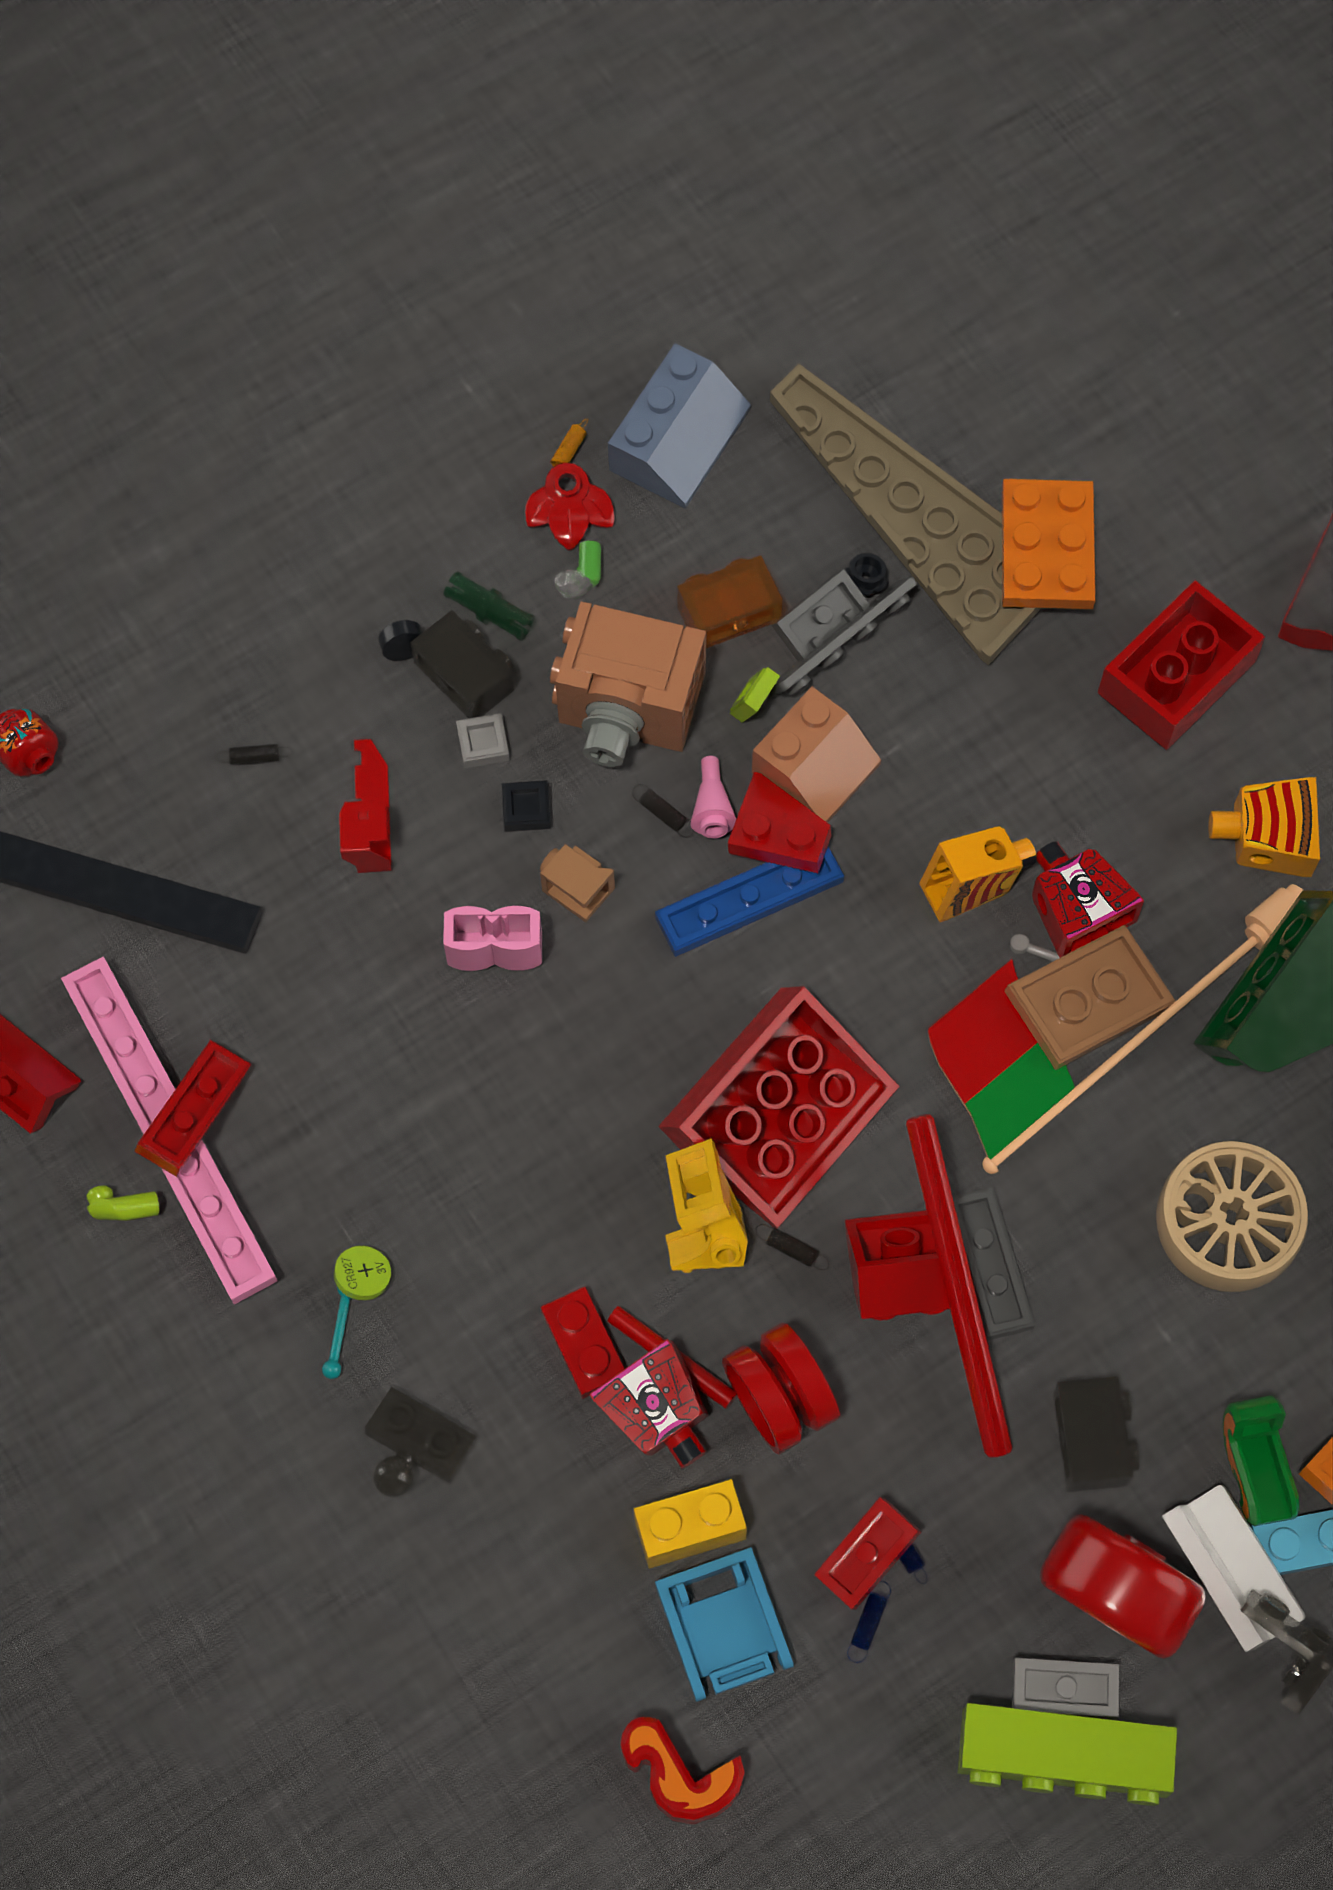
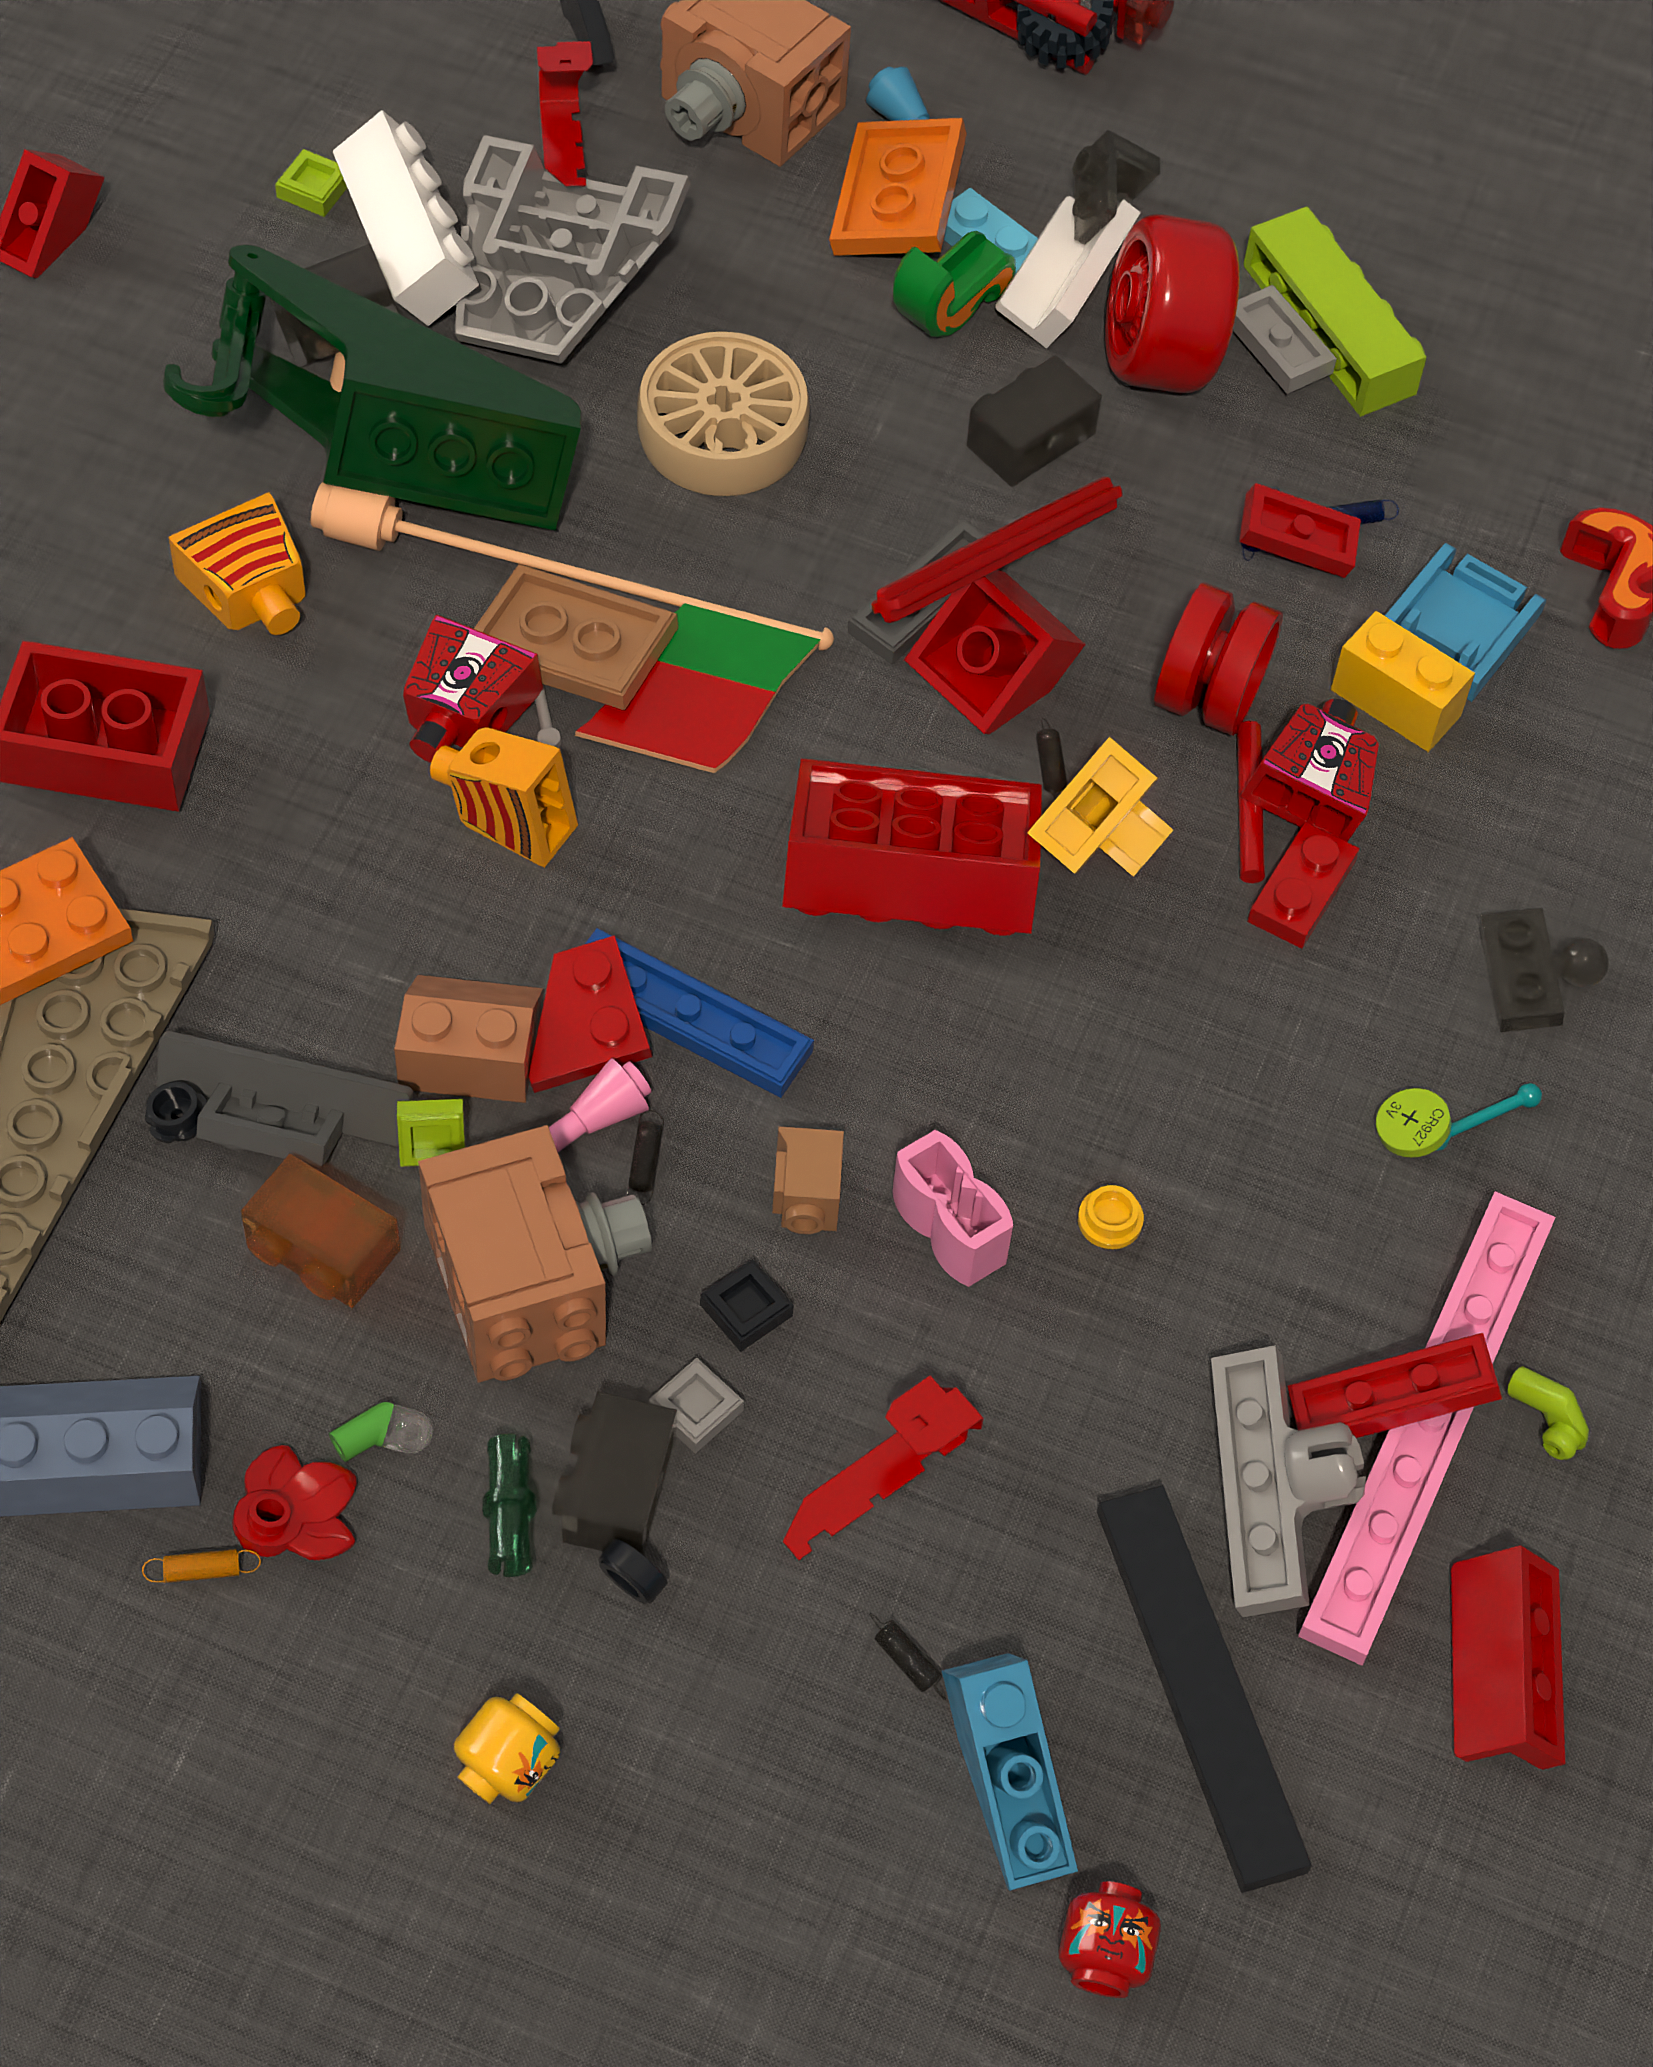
camera: 130 degrees left, 10 degrees down
(157, 757) = (1011, 1767): none -> dark azure slope
(199, 1007) = (1274, 1479): none -> light grey plate
(348, 523) = (507, 1749): none -> yellow head
(432, 1043) = (1110, 1217): none -> yellow plate

